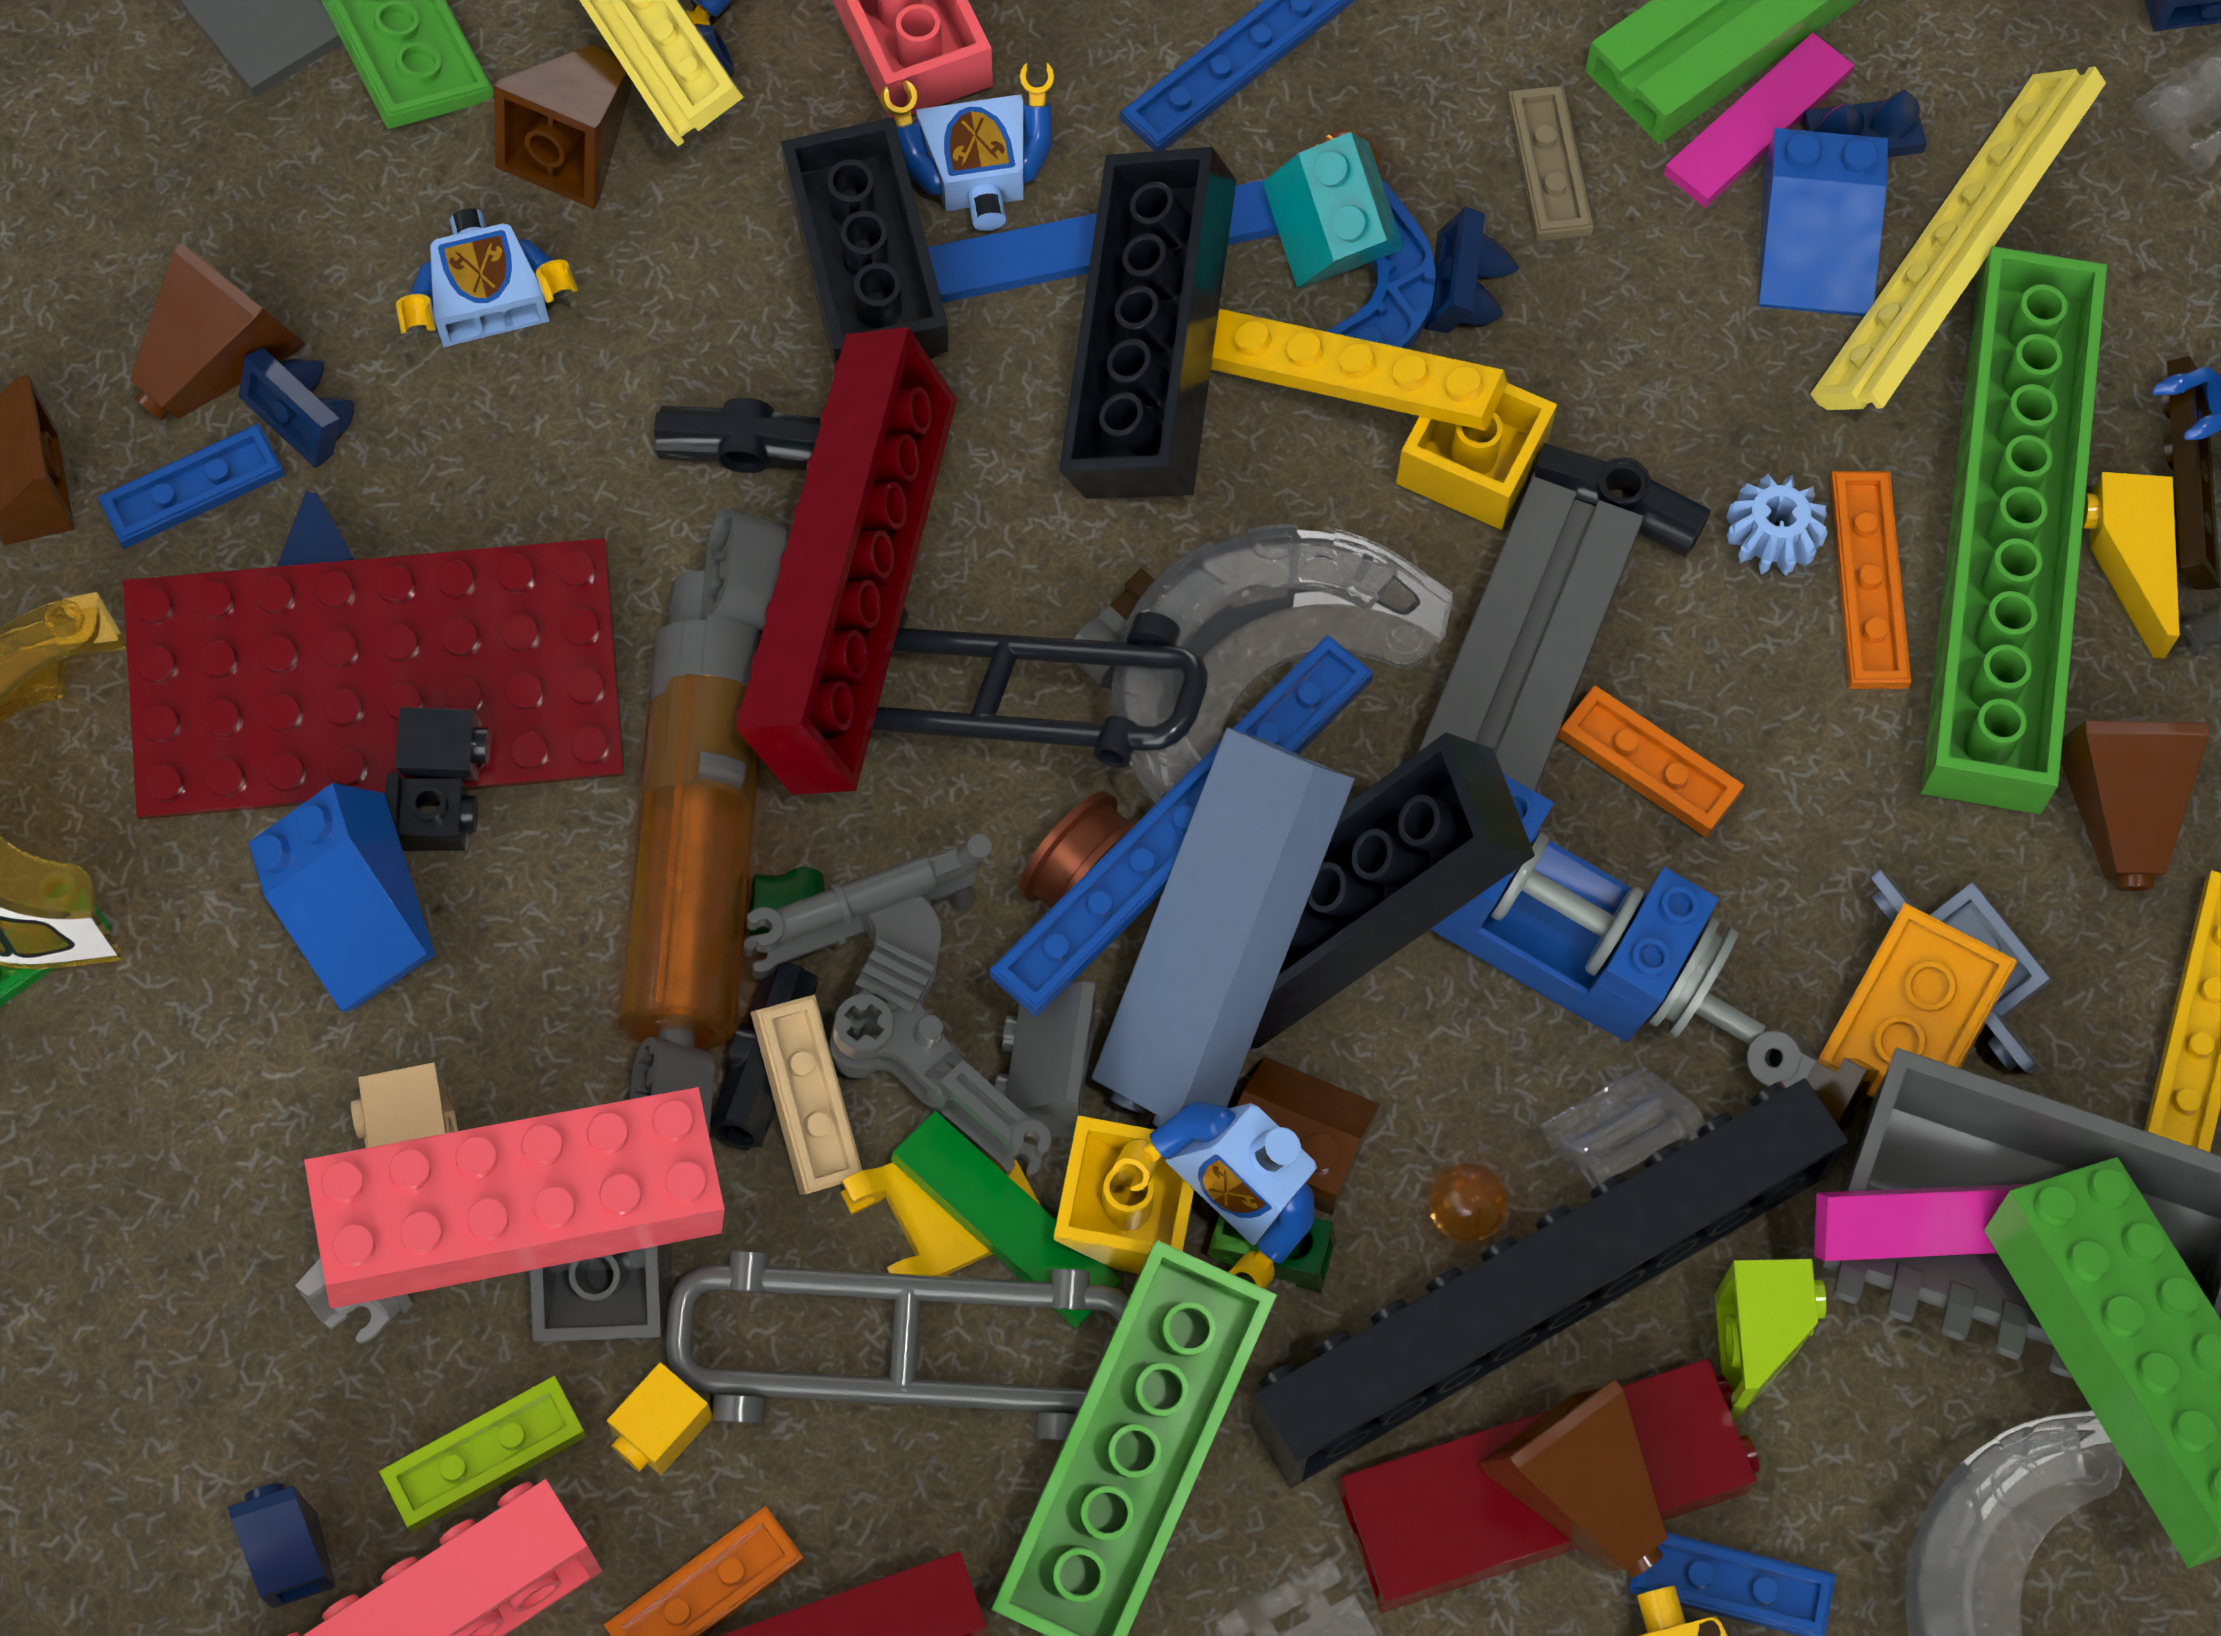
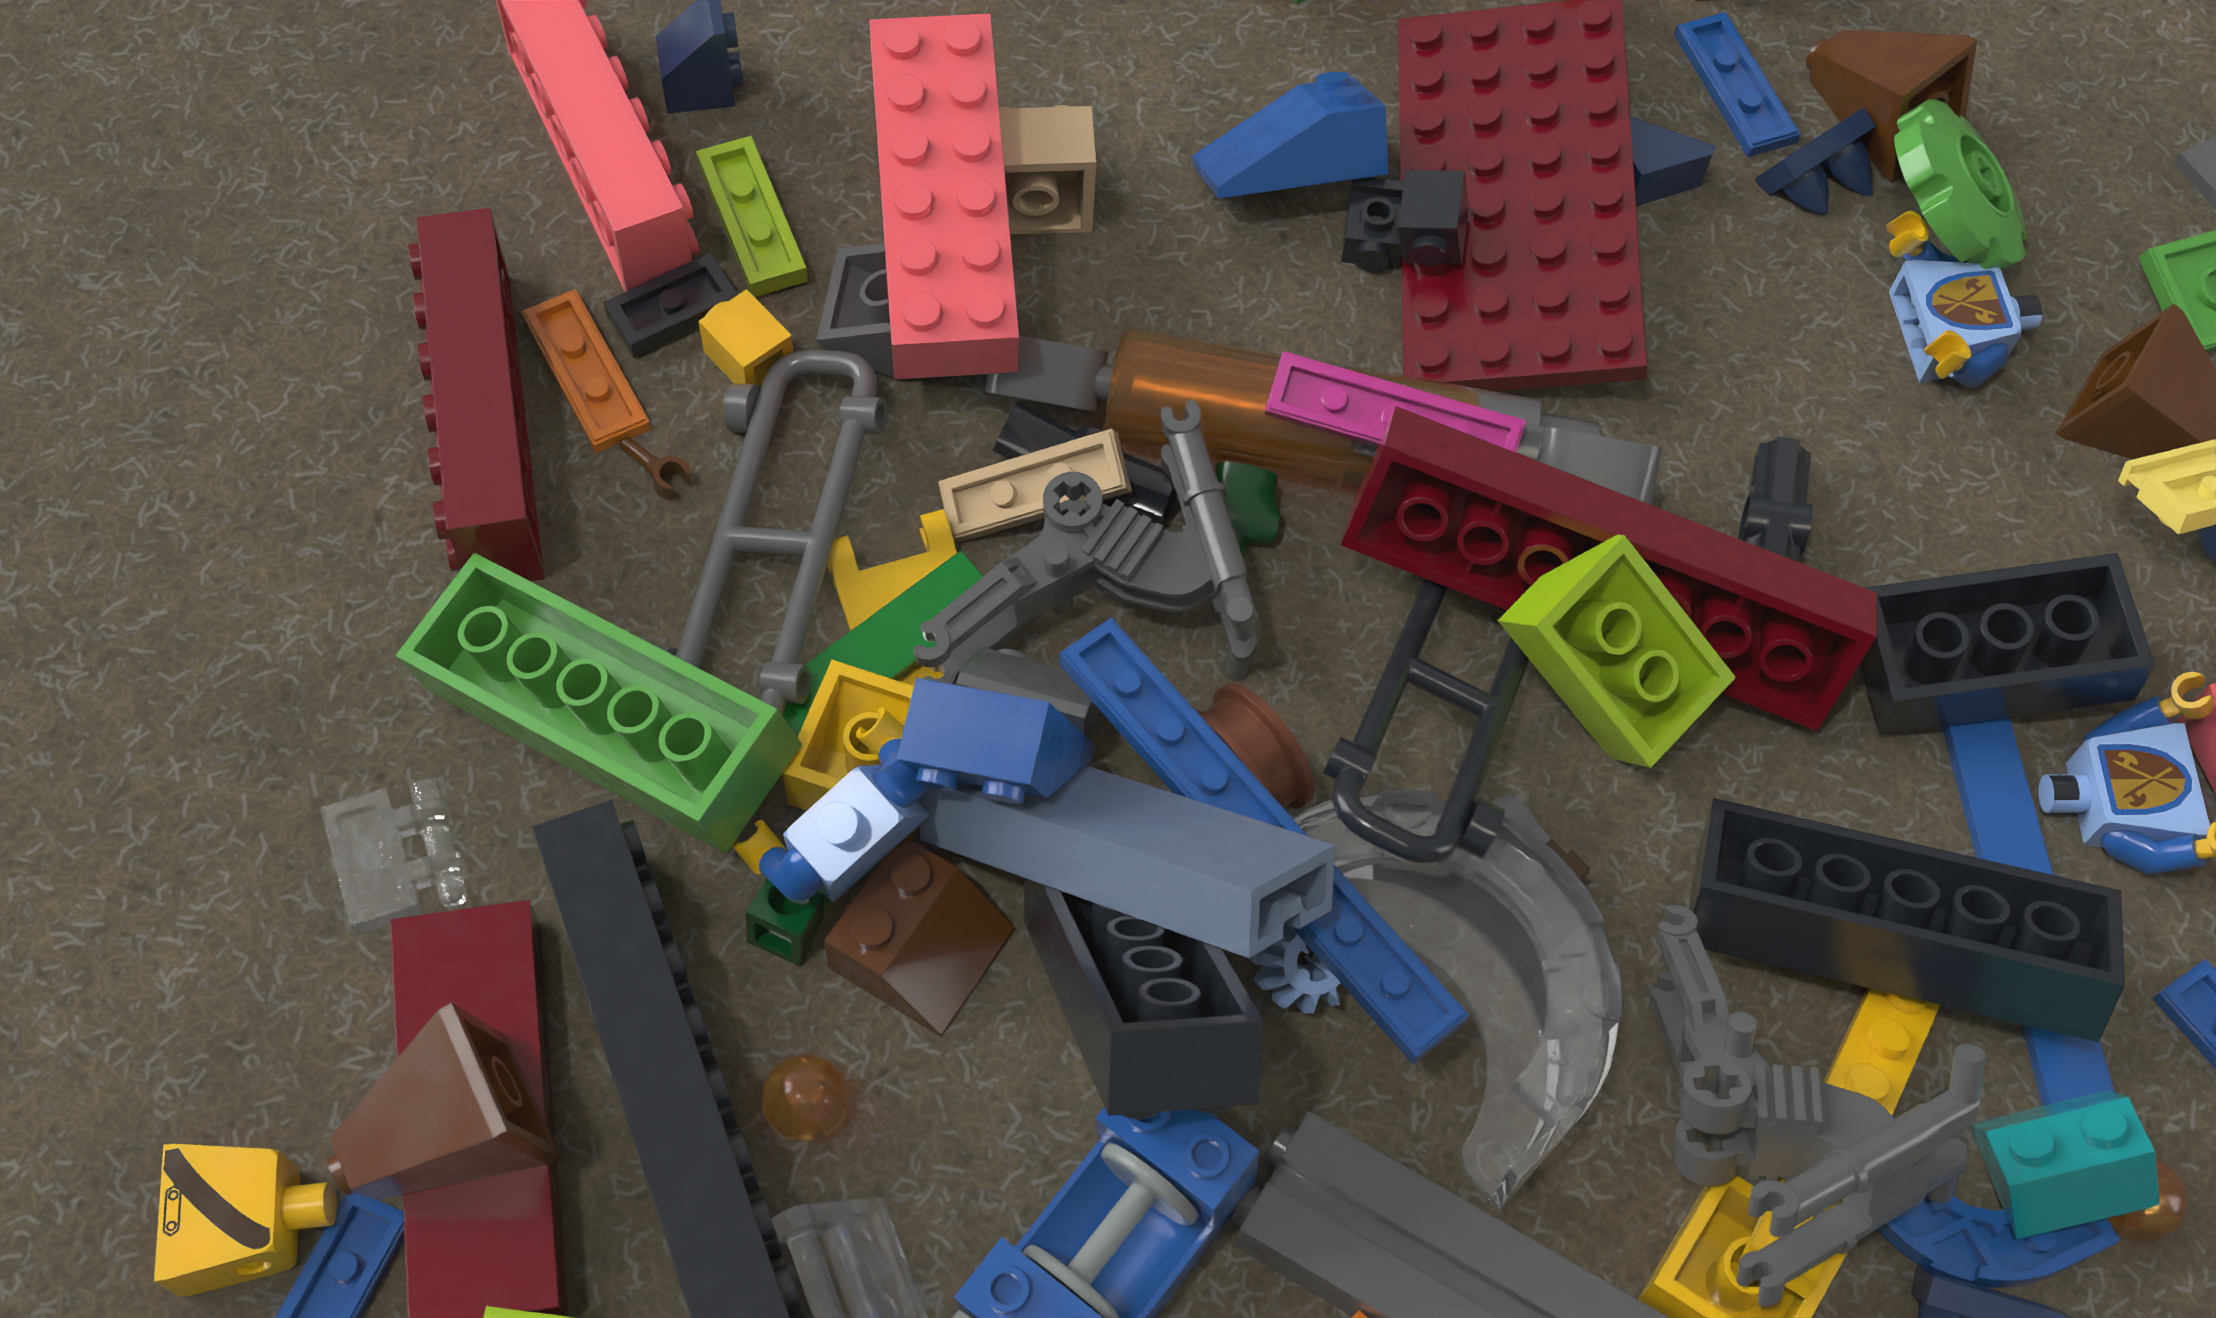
camera: 95 degrees right, 5 degrees down
(345, 269) = (1960, 186): none -> bright green piece
(614, 1513) = (668, 304): none -> black plate
(714, 754) = (1362, 405): none -> dark pink tile
(817, 1489) = (657, 467): none -> reddish brown hand
(935, 546) = (1618, 651): none -> lime slope
(1155, 1043) = (990, 741): none -> blue slope
(1377, 405) = (1794, 1126): none -> dark grey piece

